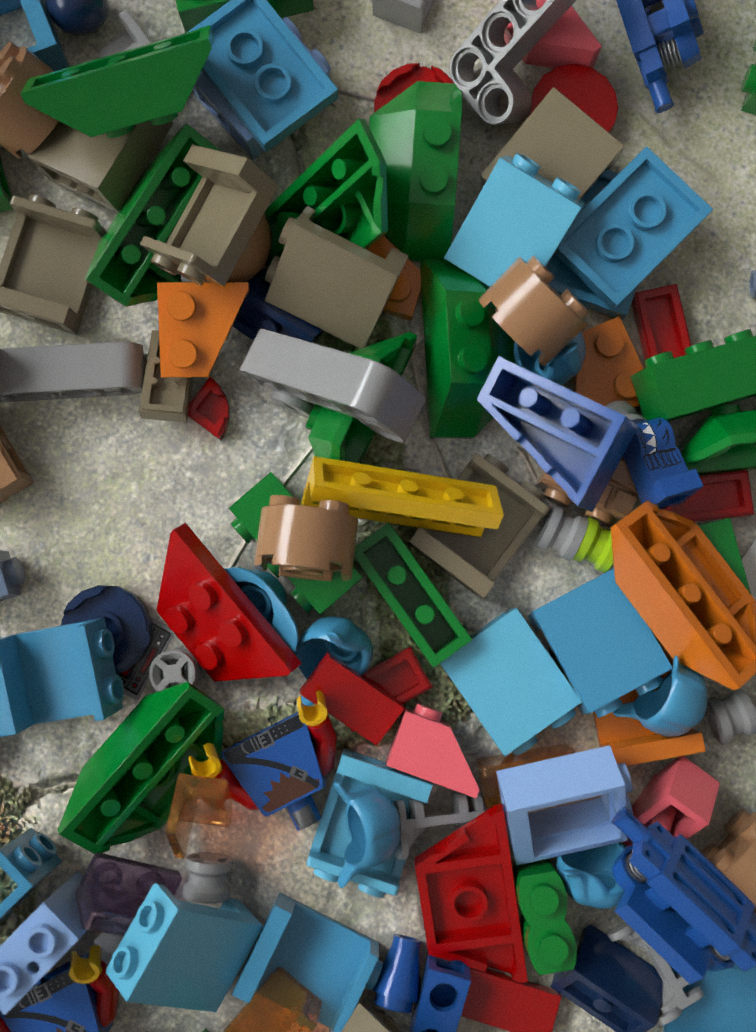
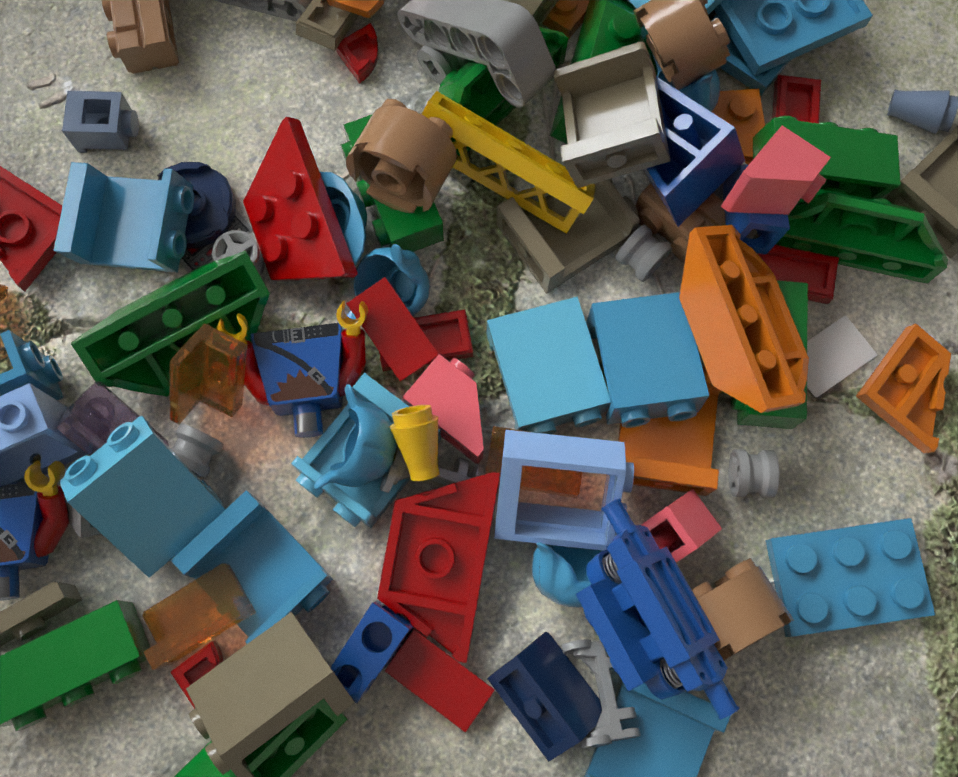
camera: 15 degrees right, 10 degrees down
(399, 976) = (341, 610): blue cone -> none
(411, 595) = (480, 251): green brick -> none
(416, 807) = (417, 438): none -> yellow cone
(497, 430) = (611, 115): none -> dark tan panel
(543, 915) = (506, 581): green brick -> none
(596, 547) = (667, 271): lime wheel -> none
(674, 706) = (703, 434): dark azure hair -> none
(678, 440) = (778, 176): none -> coral slope

